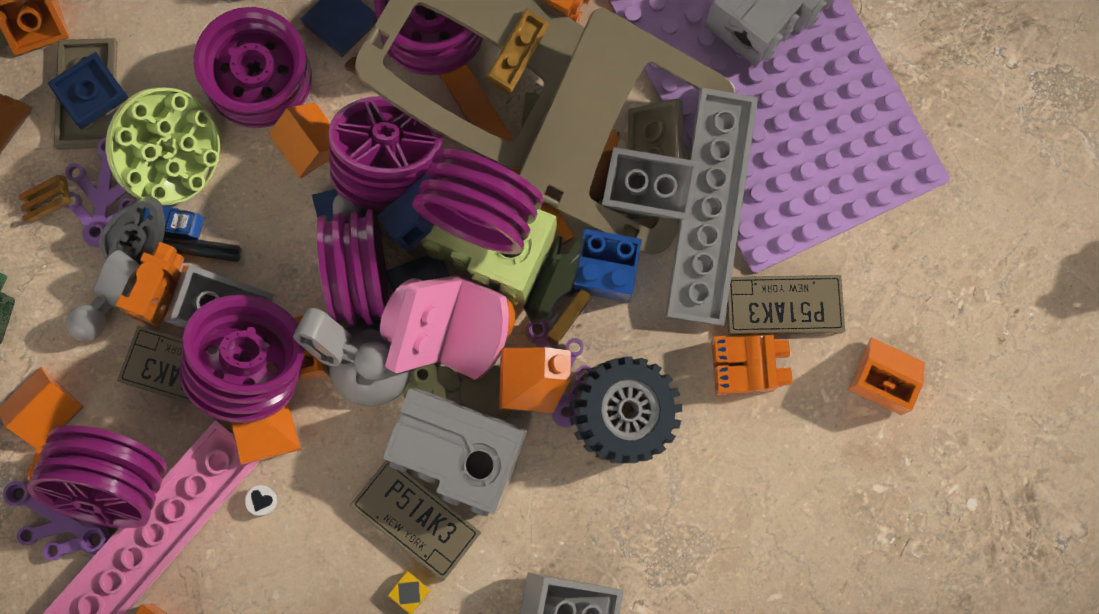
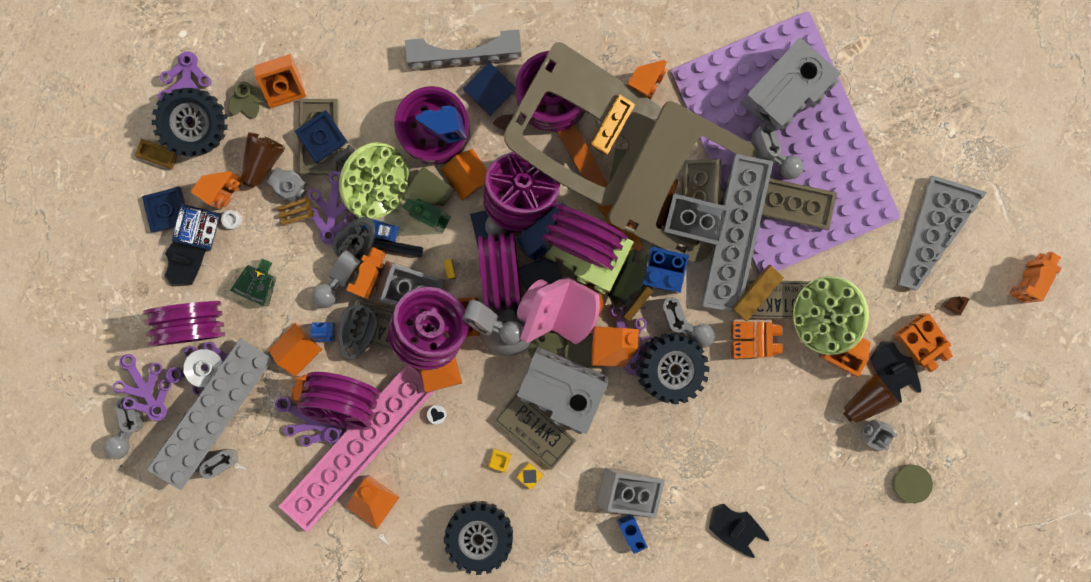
camera: 10 degrees right, 10 degrees up
(34, 160) = (287, 184): none -> light grey hand
(83, 375) = (323, 331): none -> blue leg
(120, 365) = (347, 324): none -> dark grey piece
(247, 195) = (427, 214): none -> clear green torso
(250, 160) = (429, 188): none -> olive slope
(264, 53) = (444, 123): none -> blue slope
(281, 276) = (450, 270): none -> yellow tile
(361, 570) = (499, 460): none -> yellow tile
(668, 355) = (701, 333): none -> light grey beam
(748, 293) = (757, 292): none -> pearl gold tile
(750, 79) = (769, 148): none -> light grey beam
(800, 164) = (799, 204): none -> dark tan tile
(861, 317) = (830, 315): none -> yellowish green bracket
(933, 448) = (870, 400): none -> reddish brown cone
(949, 502) = (878, 435): none -> light grey hand
(964, 403) = (894, 368): none -> black shield
(1006, 184) = (939, 220): none -> light grey wing
(1006, 358) = (924, 342): none -> orange hips
(1009, 579) = (912, 483): none -> olive tile
(1045, 303) = (956, 304): none -> reddish brown tile

